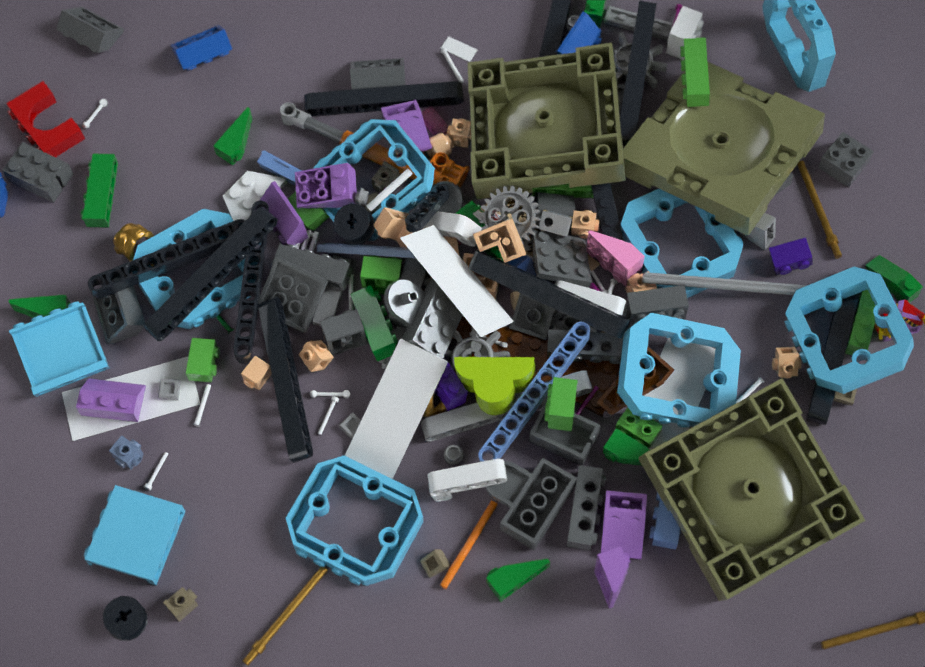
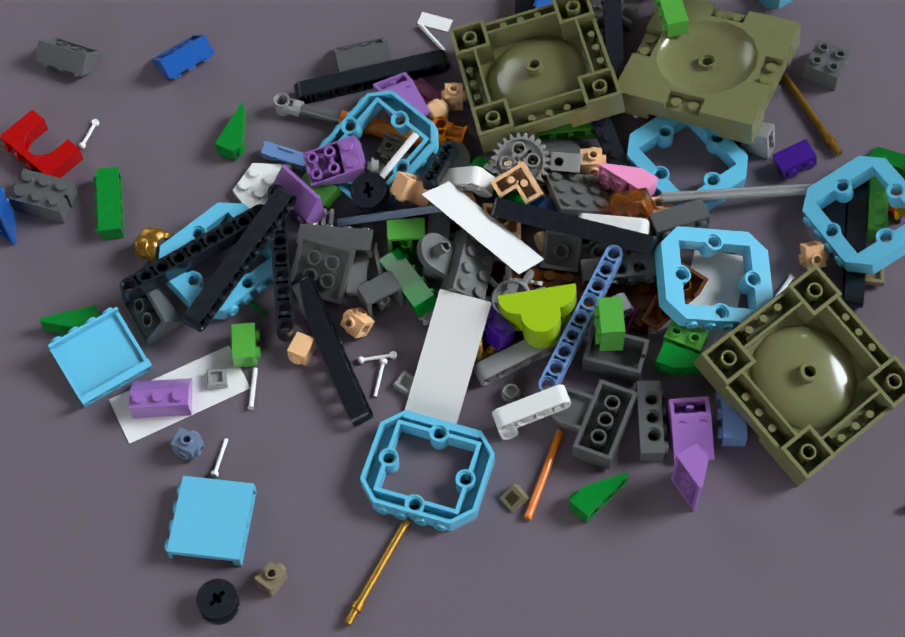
camera: 10 degrees left, 5 degrees down
(612, 279) = (632, 203): none -> clear orange brick

